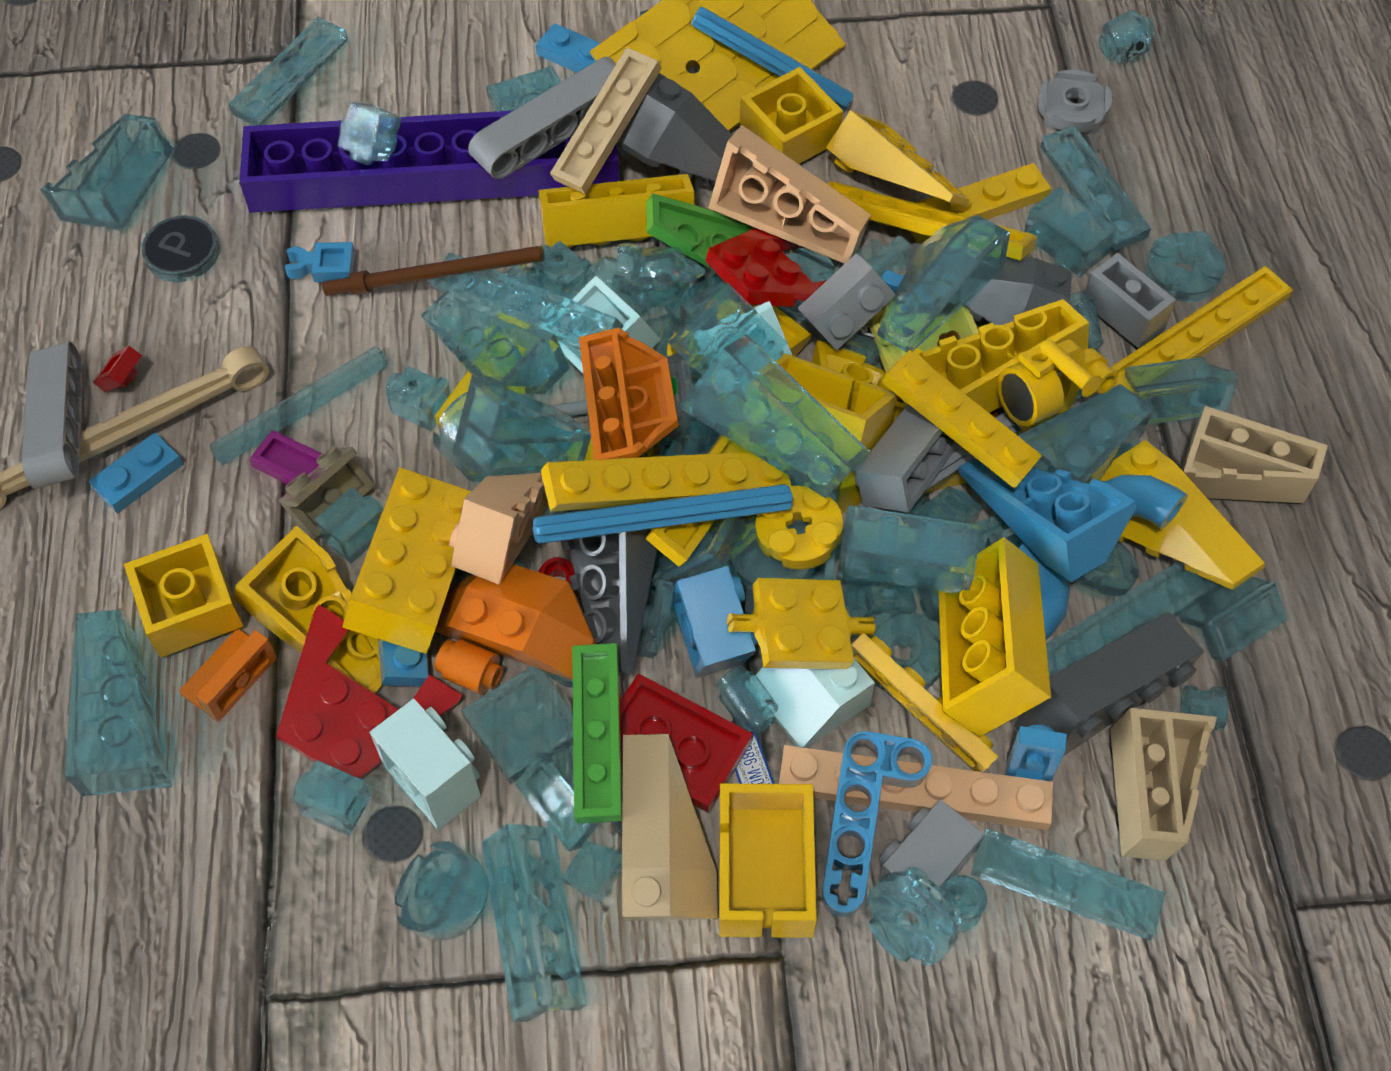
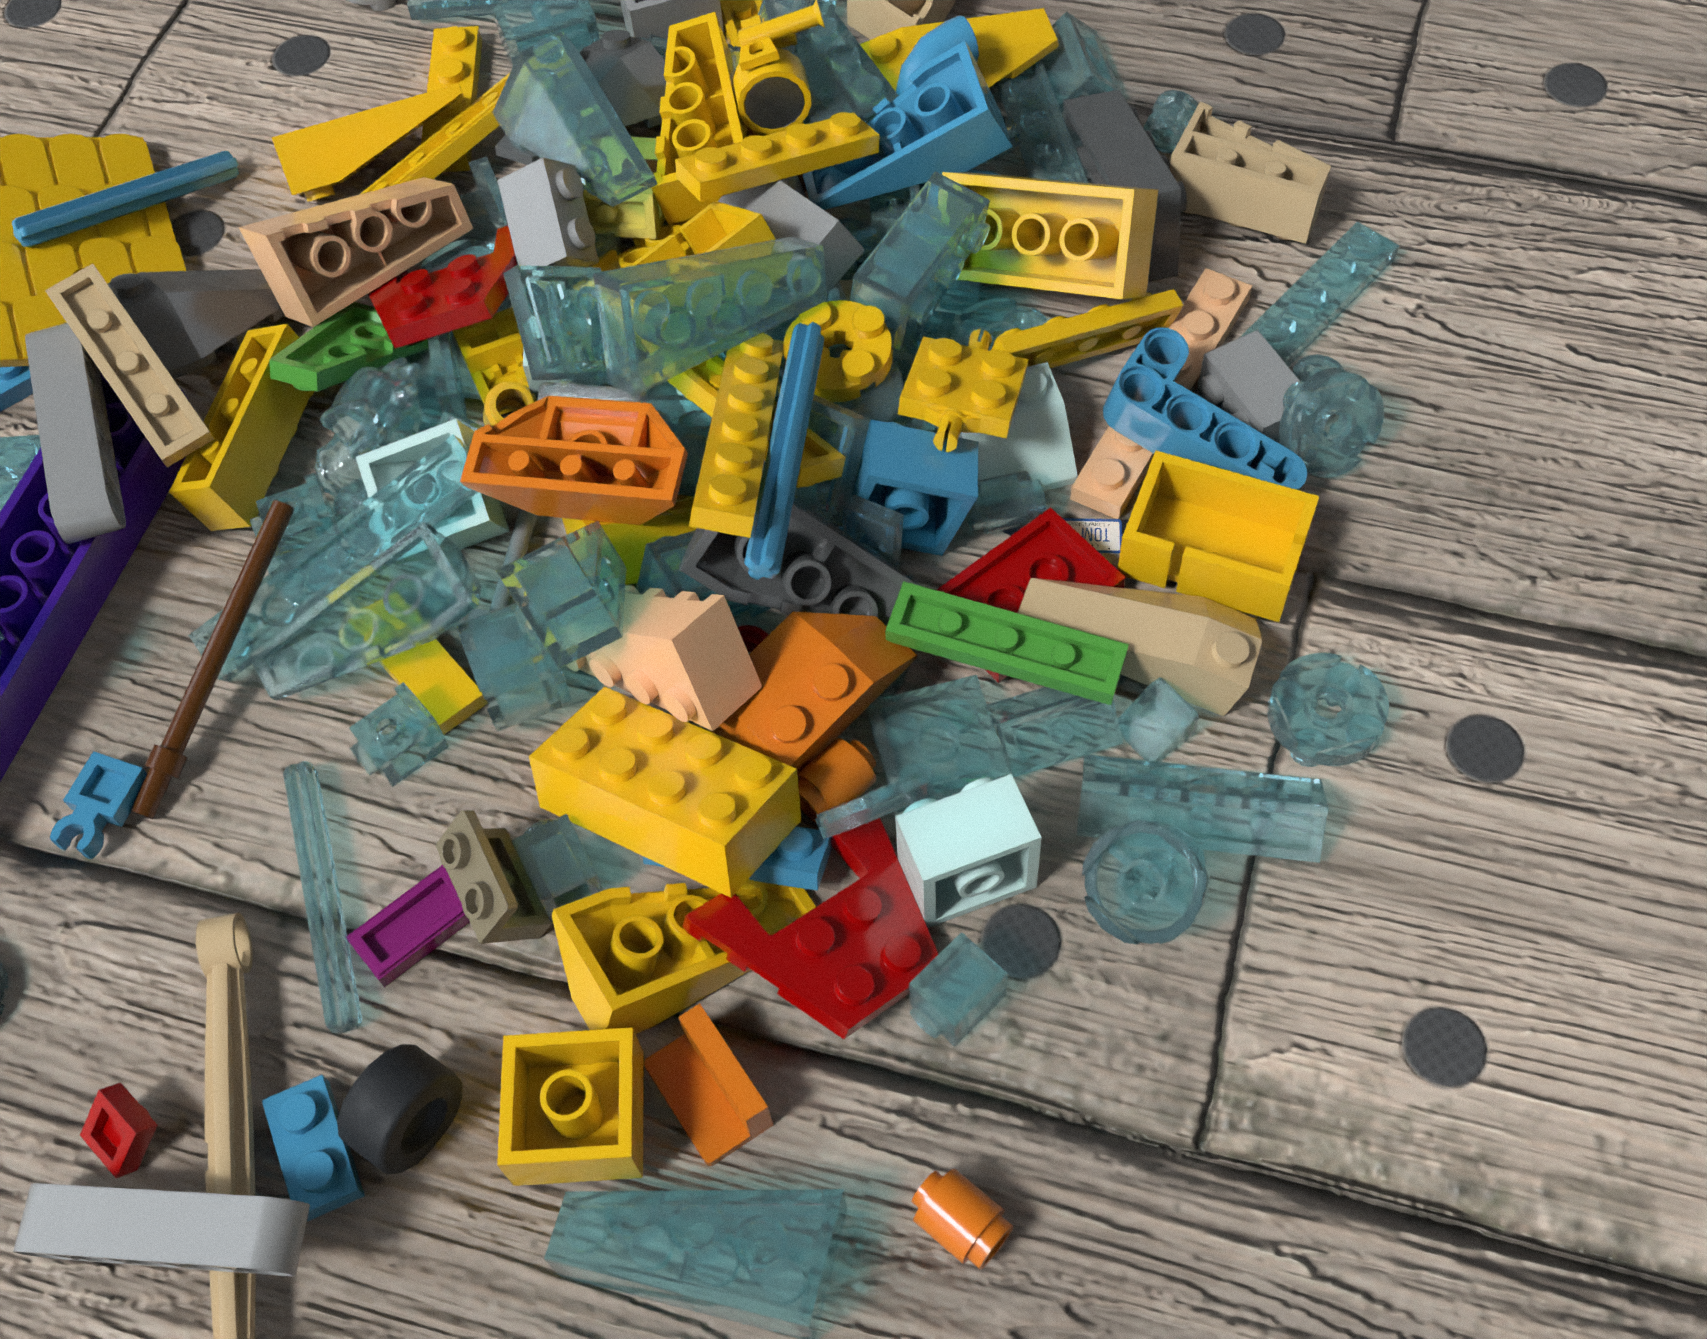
camera: 65 degrees left, 0 degrees up
(161, 503) = (399, 1108): none -> black tyre
(171, 852) = (961, 1217): none -> orange brick
(432, 688) = (874, 804): none -> clear light blue tile
(646, 1021) = (1320, 739): none -> clear light blue plate
(792, 115) = (216, 199): yellow brick -> none
(1036, 753) = (1185, 250): dark azure plate -> none

